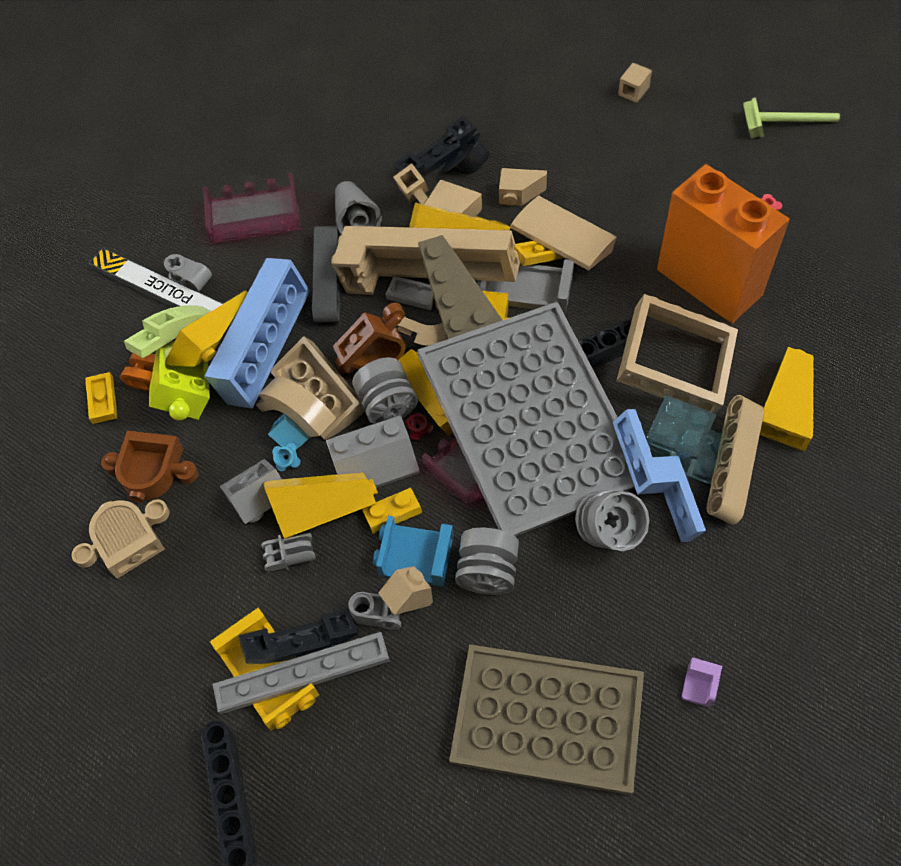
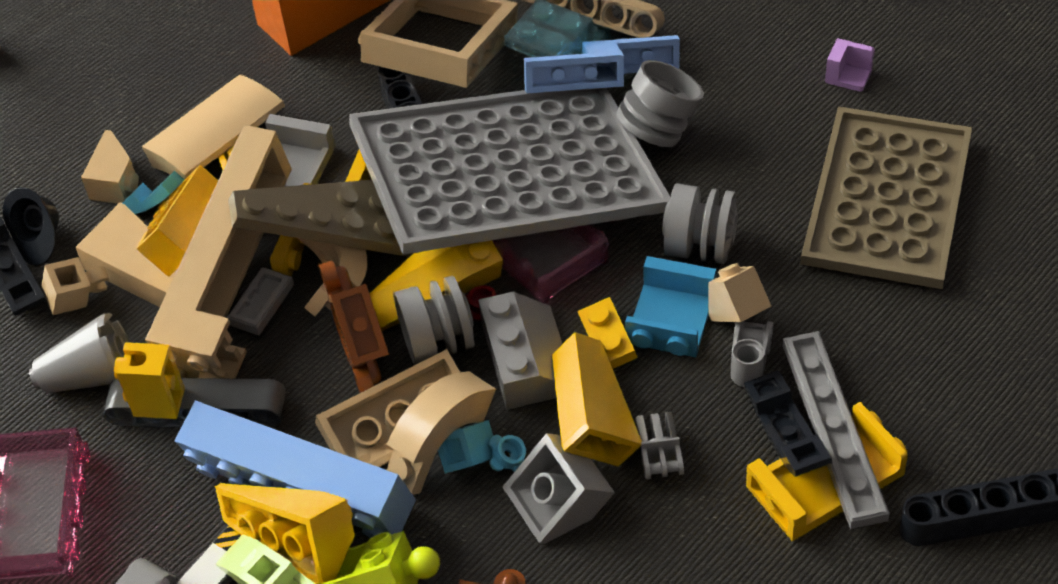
camera: 85 degrees left, 10 degrees down
(310, 232) = (150, 380): none -> yellow brick
(499, 212) = (144, 198): none -> medium azure slope

